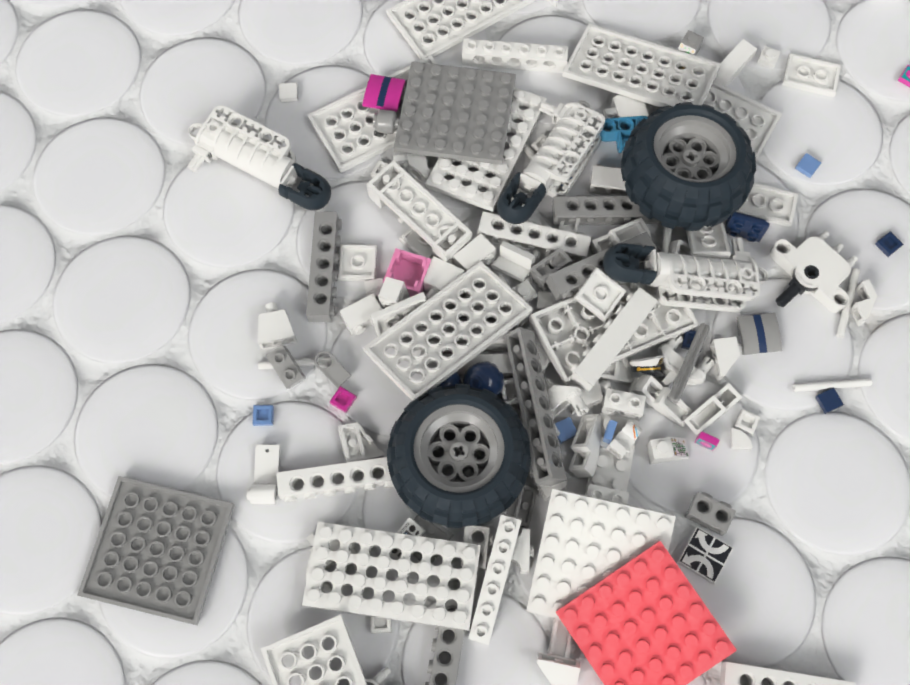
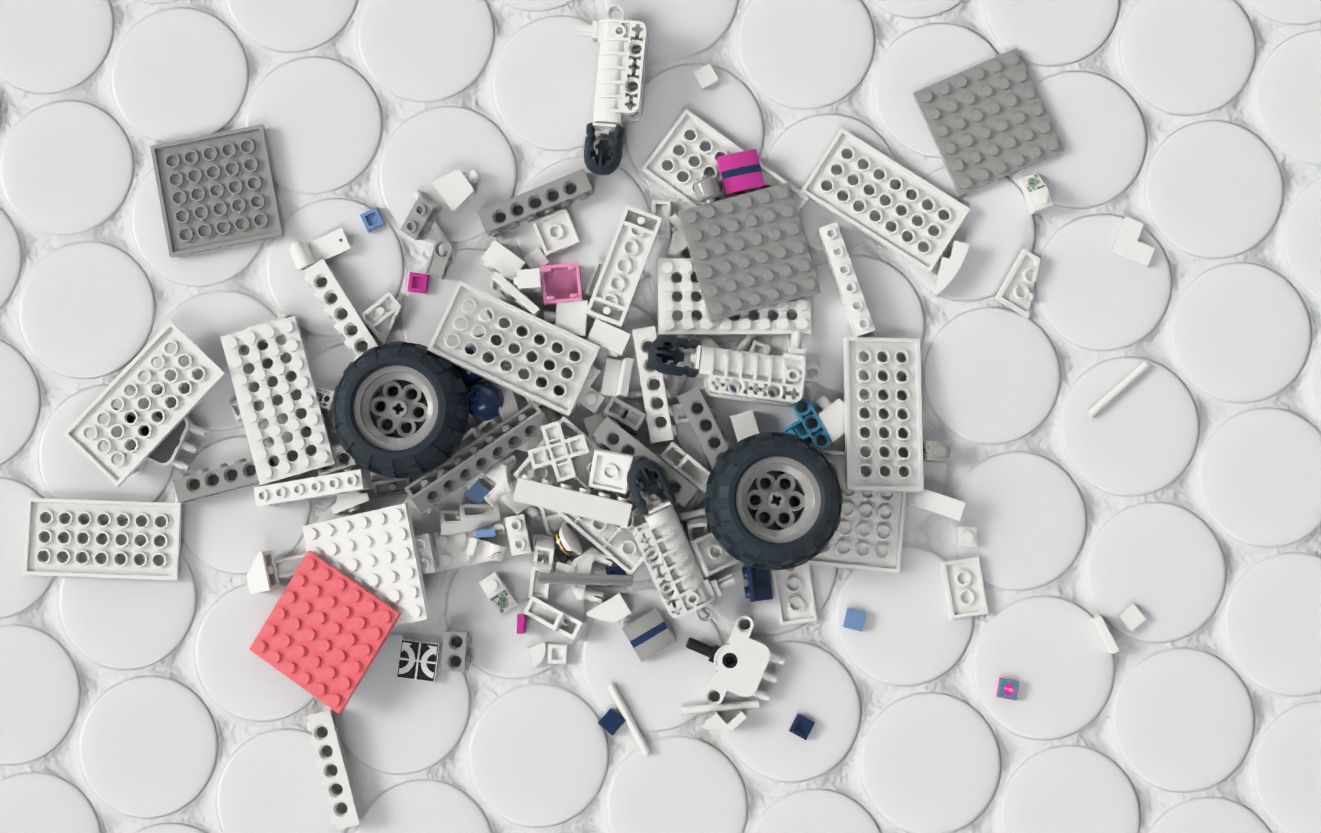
camera: 70 degrees right, 15 degrees up
(562, 330) = (558, 451): none -> white plate

